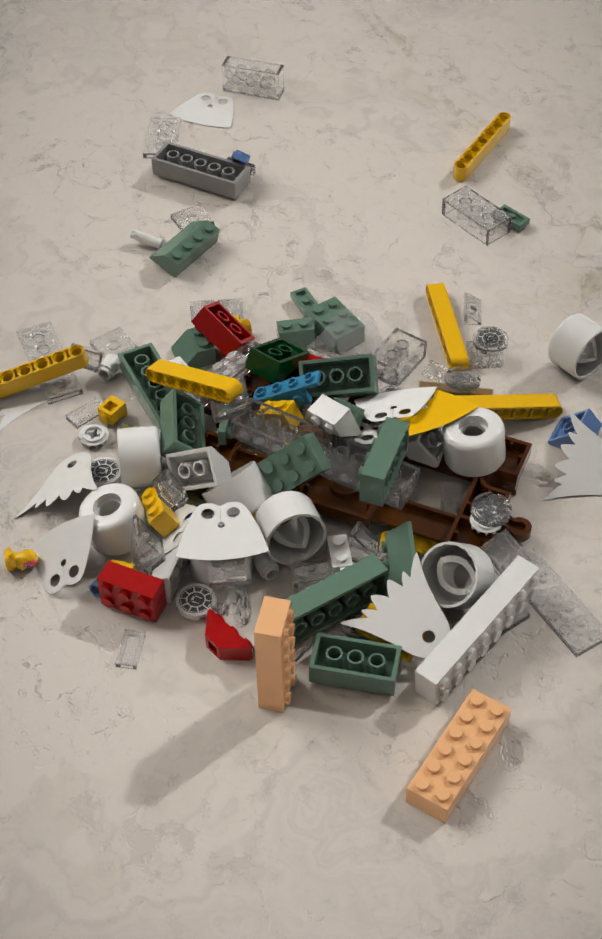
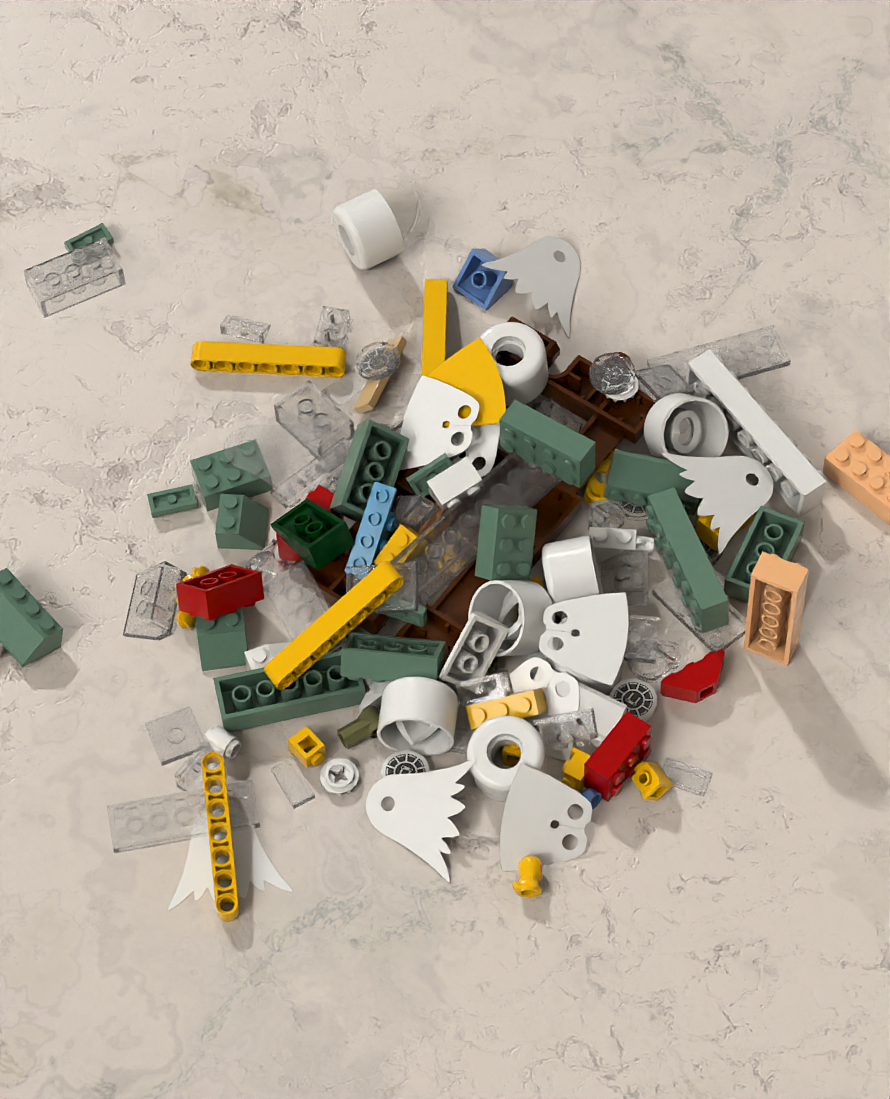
camera: 75 degrees left, 10 degrees up
(117, 621) = (651, 780): none -> yellow brick
(490, 340) = (325, 316): clear tile -> none

